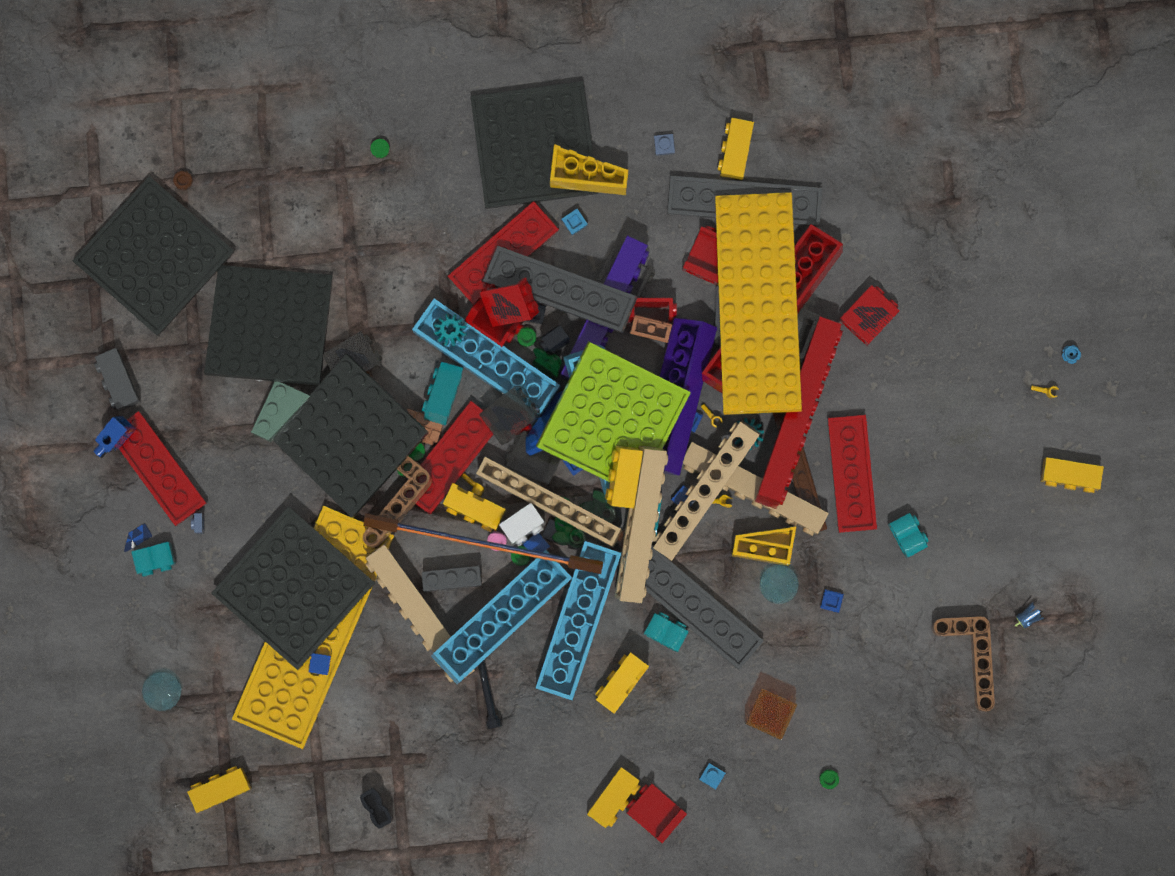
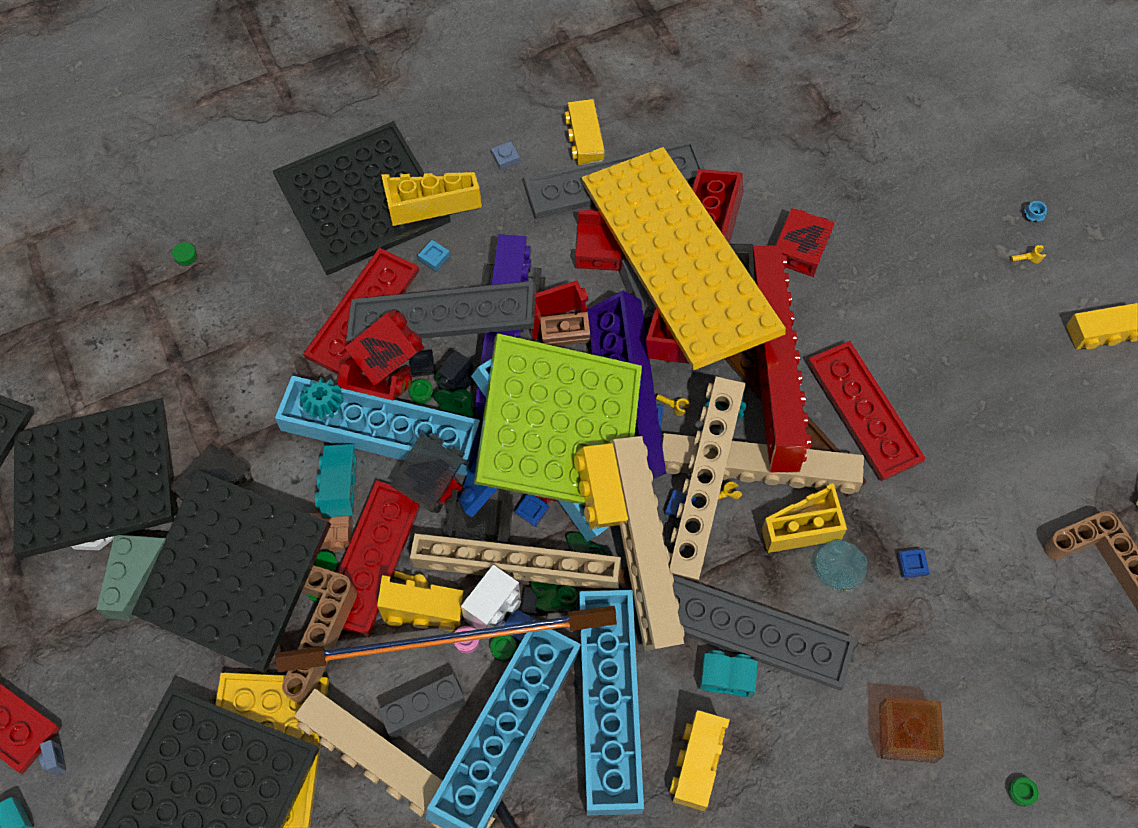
camera: 20 degrees left, 20 degrees down
(908, 535) = (964, 453): teal brick -> none

